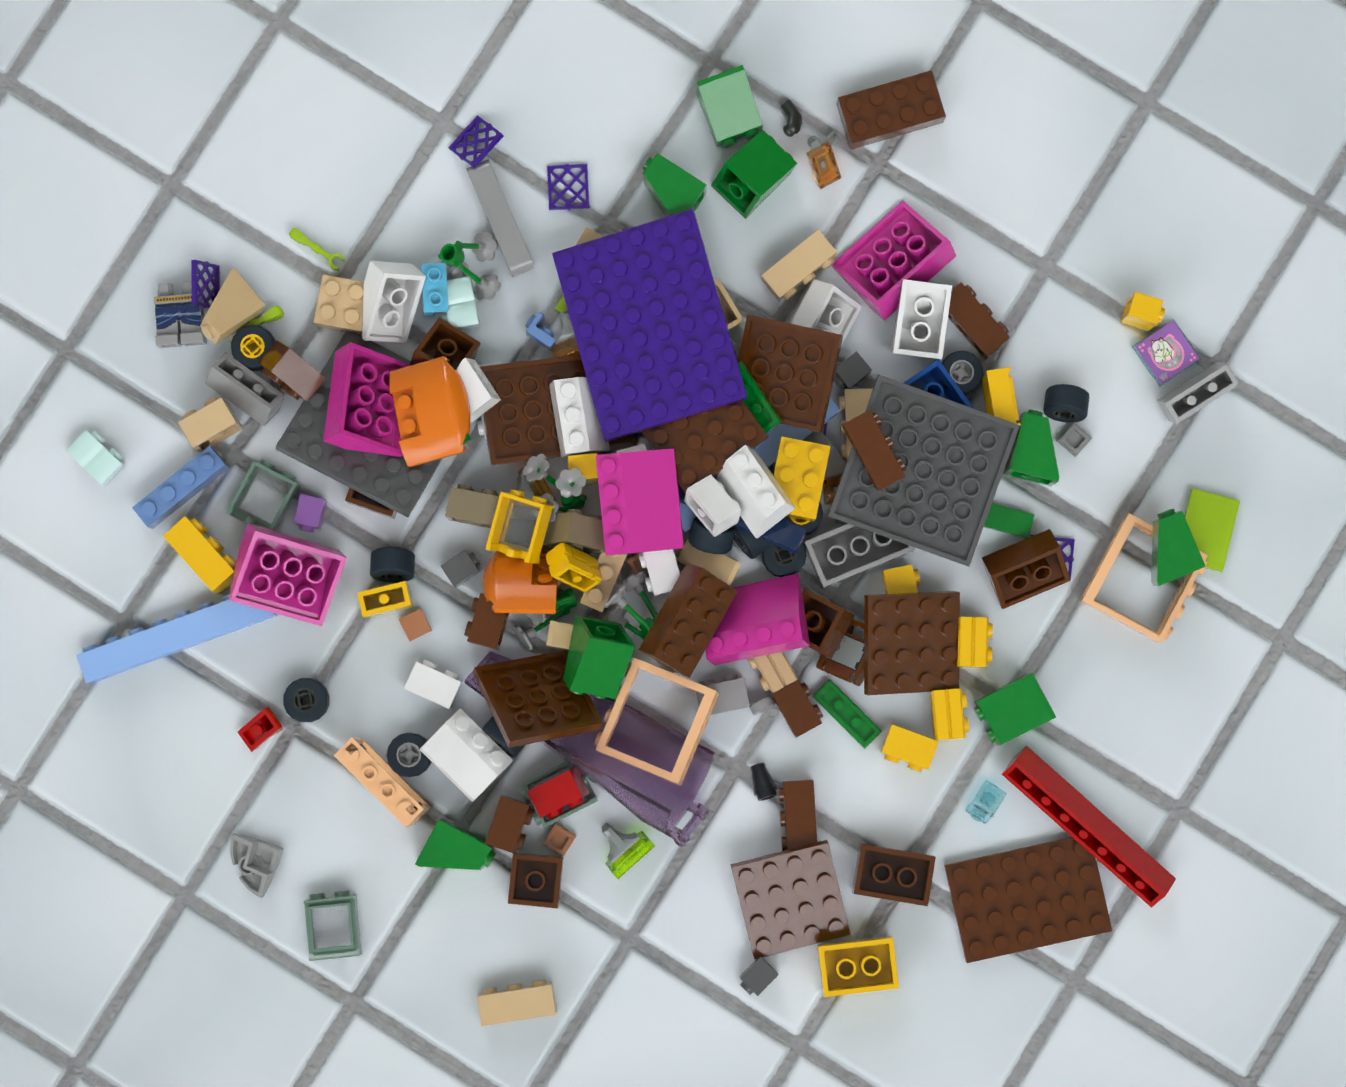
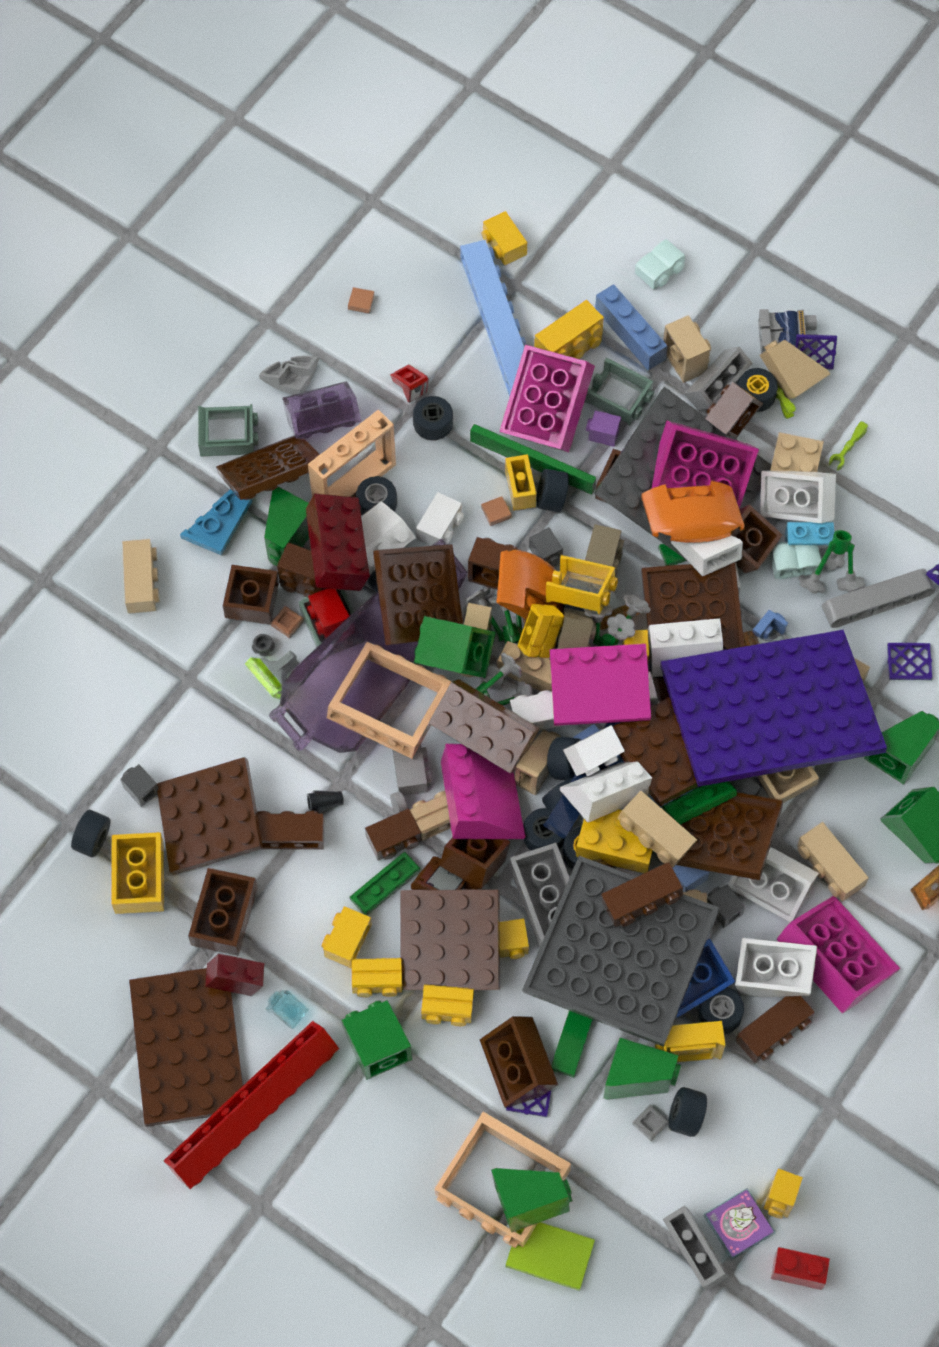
camera: 95 degrees right, 20 degrees down
(68, 634) = (504, 238): none -> yellow brick
(154, 791) = (361, 300): none -> nougat tile
(308, 822) = (321, 410): none -> clear purple brick
(351, 588) = (538, 461): none -> green tile
(386, 872) = (267, 467): none -> reddish brown plate
(446, 923) = (219, 524): none -> dark azure wing
(486, 789) = (337, 542): none -> dark red brick
(584, 867) = (263, 639): none -> dark grey plate
(800, 439) = (656, 829): none -> tan brick
(818, 1020) = (90, 833): none -> black wheel
(961, 855) = (235, 974): none -> dark red brick
(1207, 295) = (800, 1268): none -> red brick

